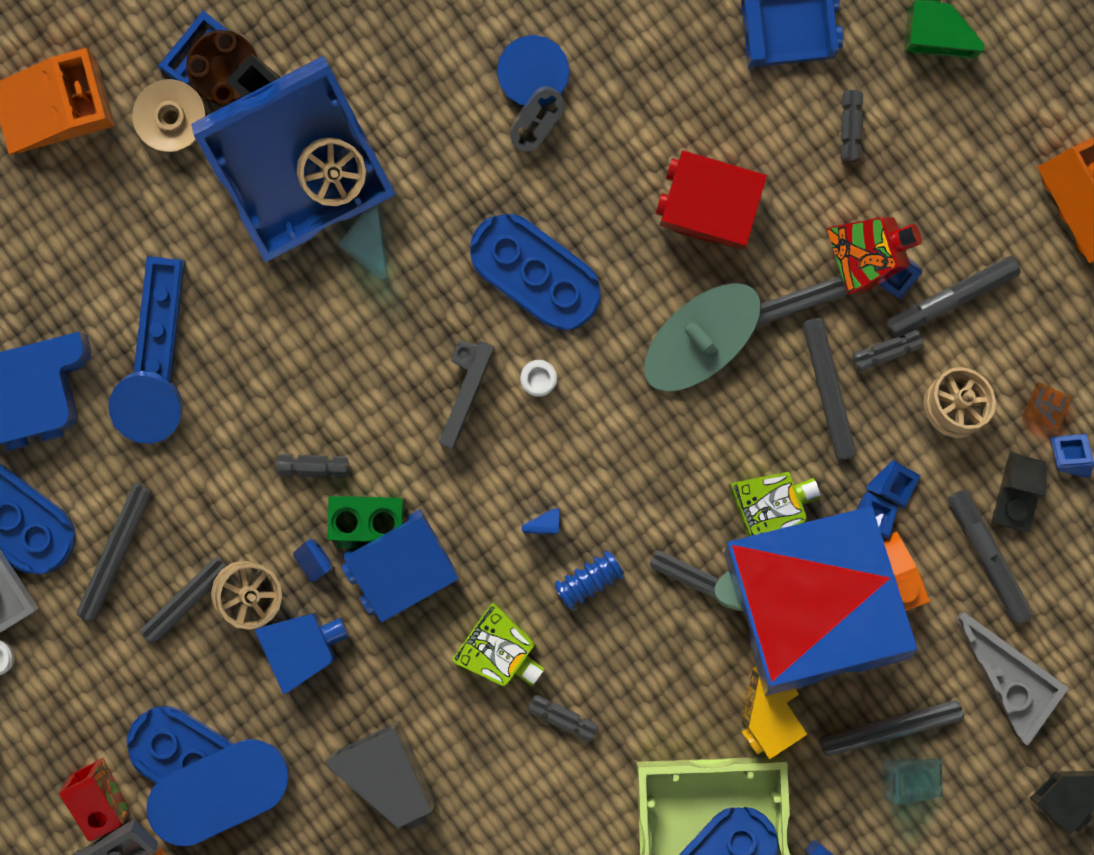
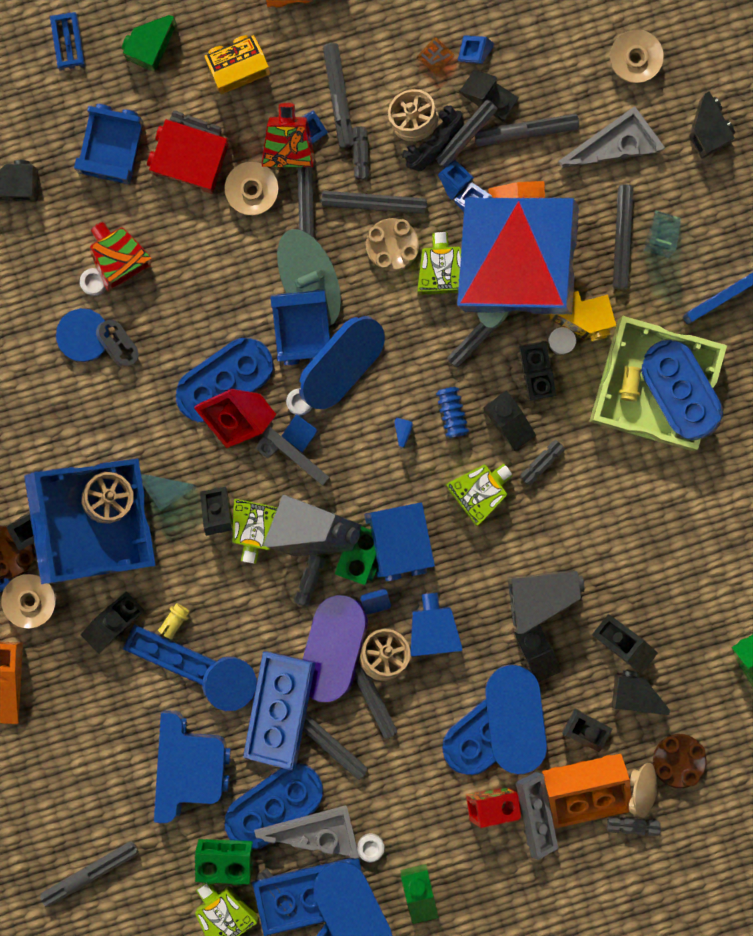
camera: 75 degrees left, 0 degrees up
(132, 482) = (279, 710): none -> tile
(176, 231) = (112, 622): none -> pearl dark grey slope
(206, 310) = (174, 620): none -> light yellow pin
(233, 526) = (335, 646): none -> dark purple tile
(311, 795) = (538, 653): none -> pearl dark grey slope
(357, 374) = (251, 527): none -> torso
(361, 317) = (216, 511): none -> pearl dark grey slope
(376, 445) = (308, 530): none -> slope
(492, 302) = (236, 415): none -> red slope
(497, 391) = (299, 433): none -> blue slope
(603, 658) = (510, 420): none -> pearl dark grey slope
(606, 62) = (91, 282): none -> white tile
(606, 415) = (341, 362): none -> blue tile
(635, 348) = (300, 325): none -> blue panel
(649, 81) = (117, 255): none -> torso
(680, 673) = (537, 370): none -> pearl dark grey slope
(702, 800) = (630, 383): none -> light yellow pin
(711, 200) = (215, 240): red brick -> none
(729, 692) = (562, 340): none -> white tile
(782, 430) = (392, 244): none -> tan dish
(799, 207) = (249, 175): none -> tan dish
(809, 129) = (188, 155): none -> red panel
(949, 152) = (237, 63): none -> yellow piece
(958, 479) = (466, 133): none -> dark grey axle
(964, 456) = (422, 156): none -> black piece

